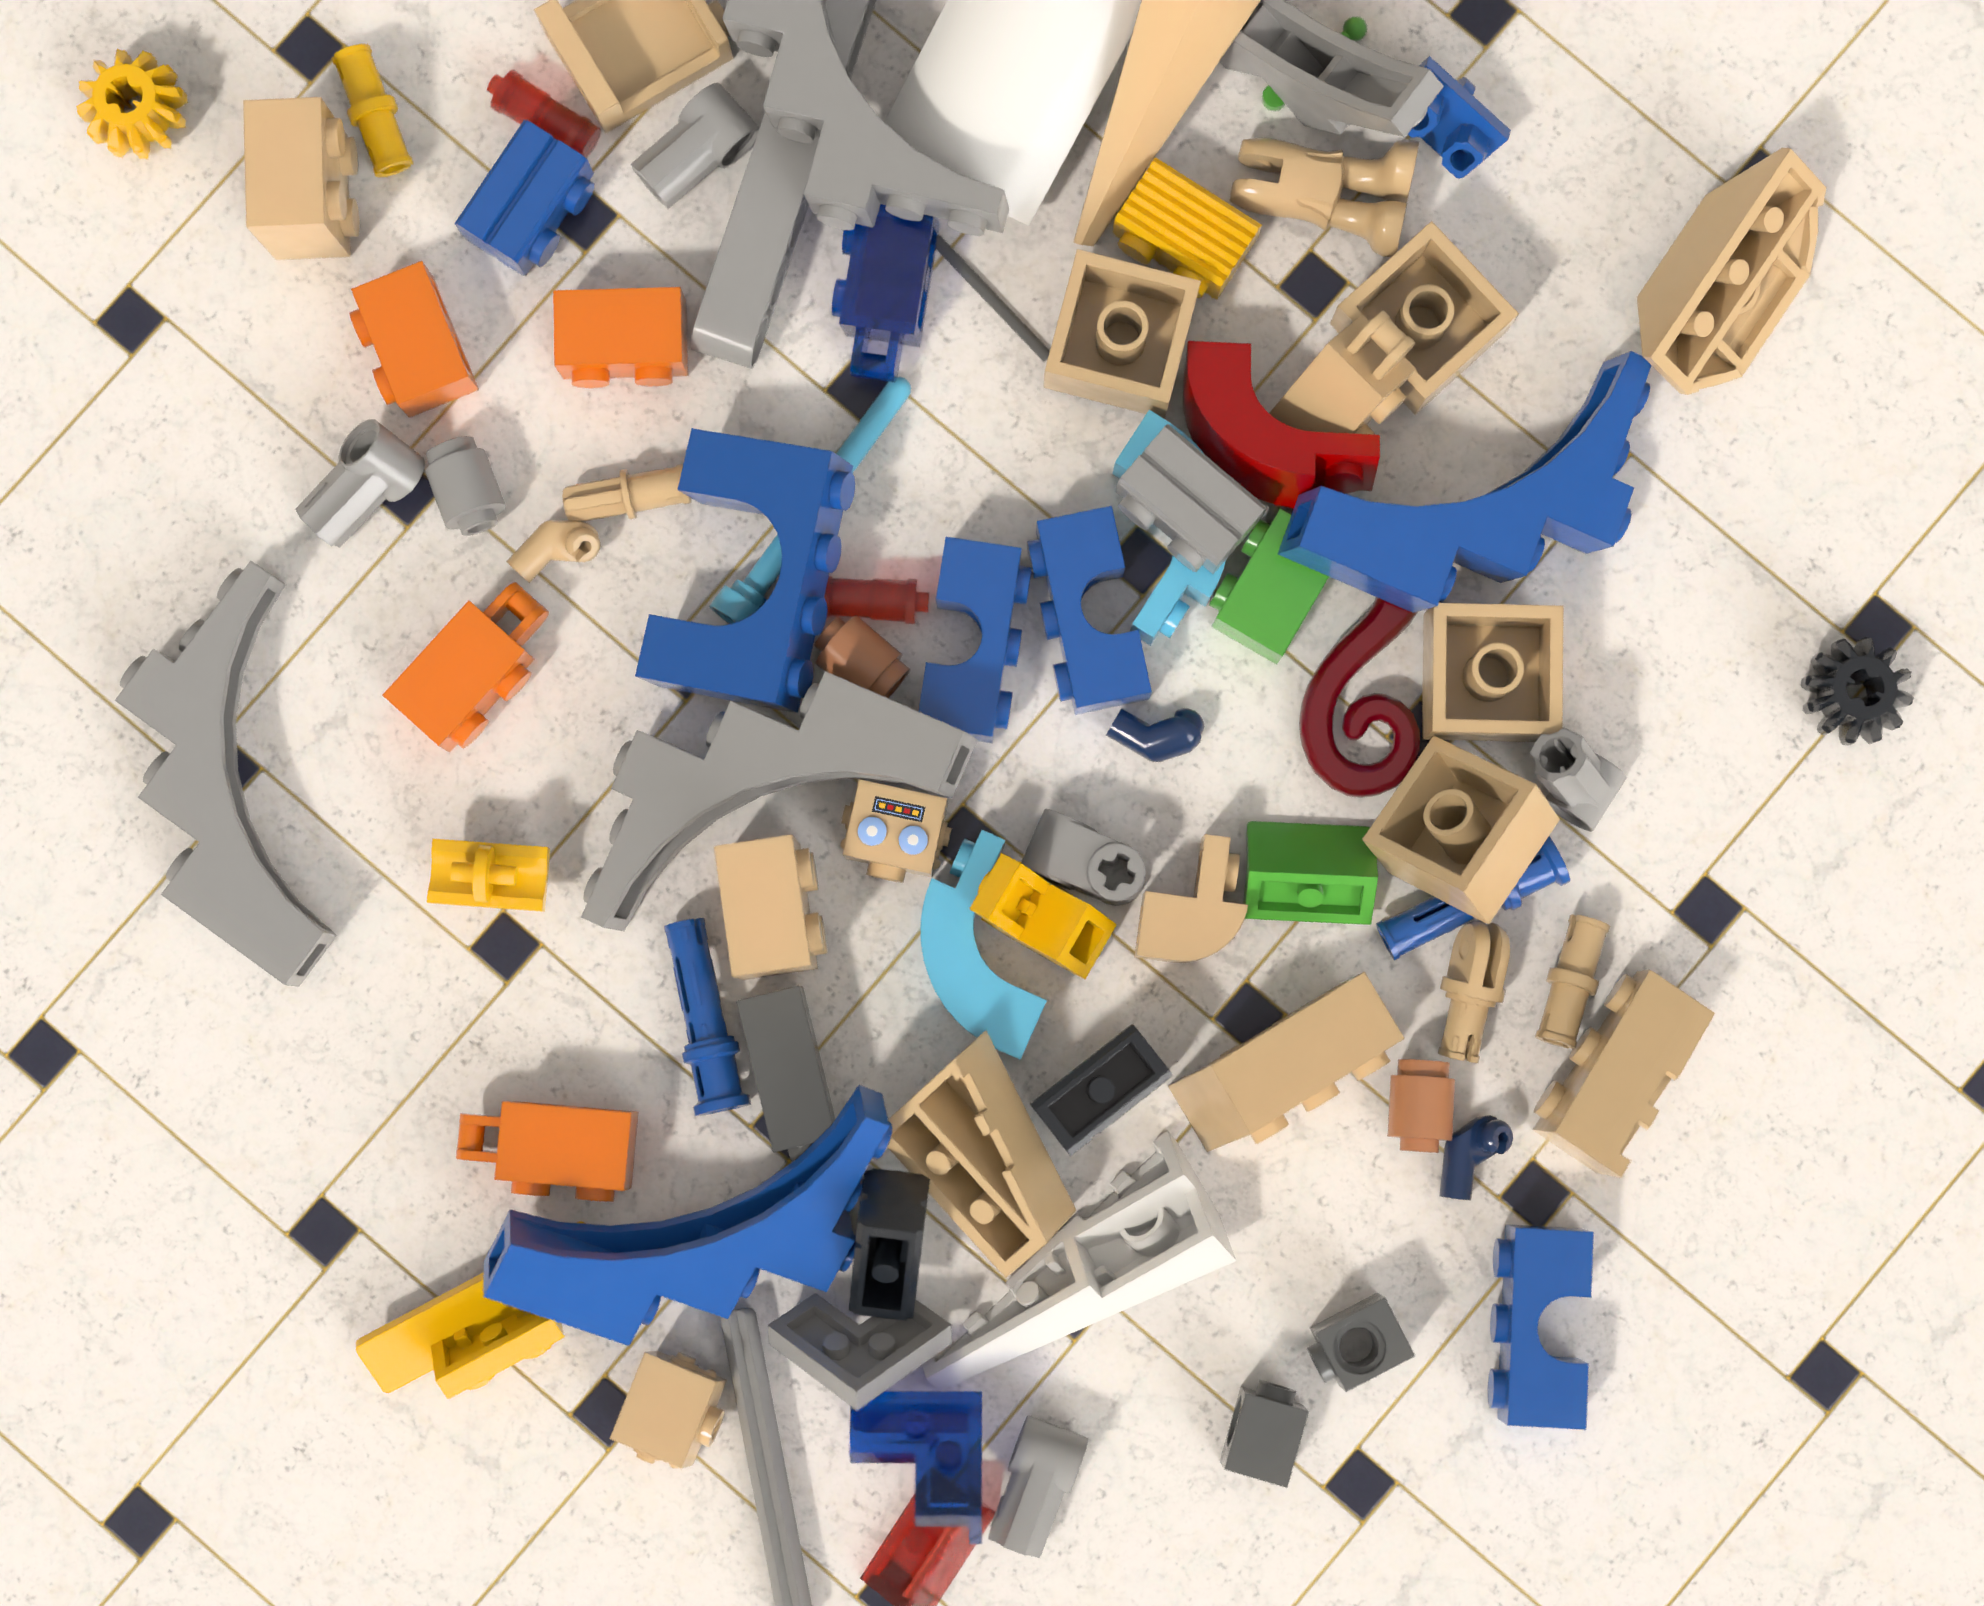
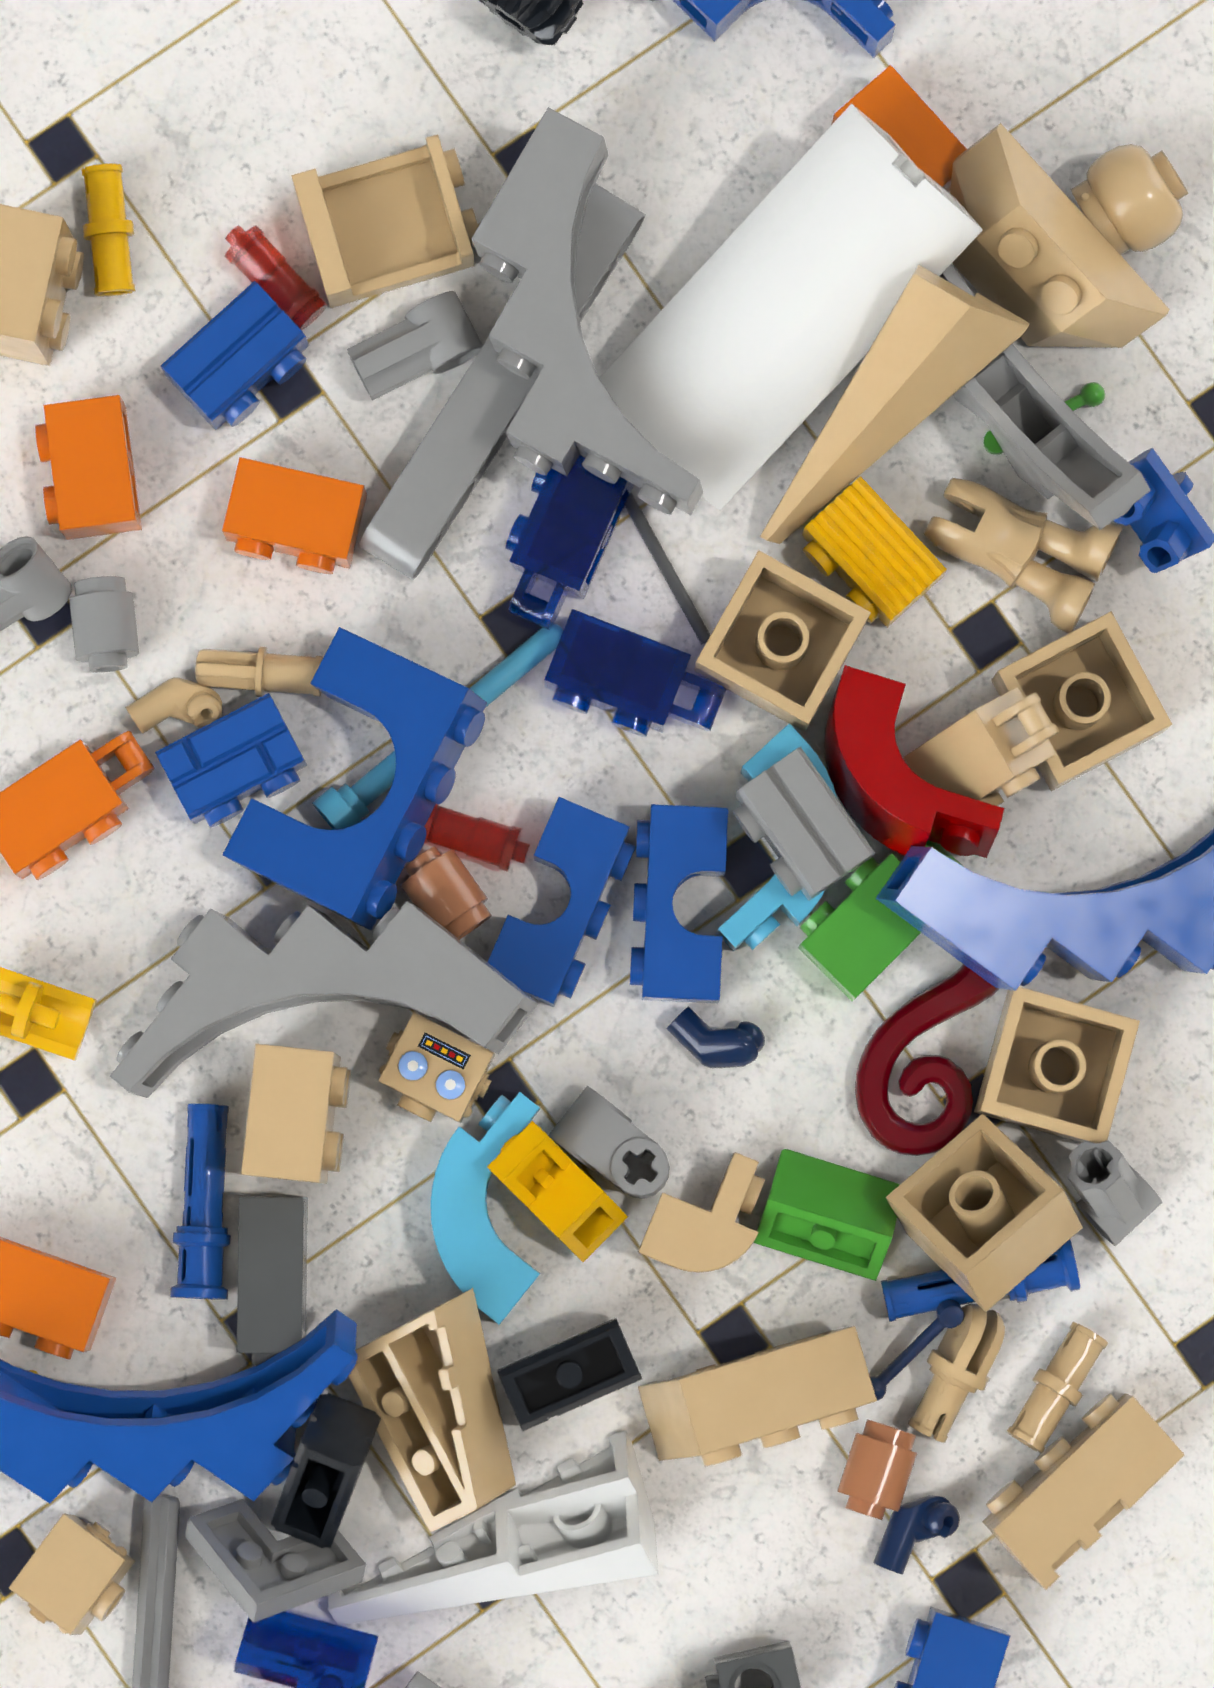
camera: 10 degrees right, 0 degrees up
(623, 585) = (232, 761): none -> blue brick
(981, 408) = (627, 677): none -> clear blue brick
(1451, 939) = (948, 1316): none -> dark blue hinge

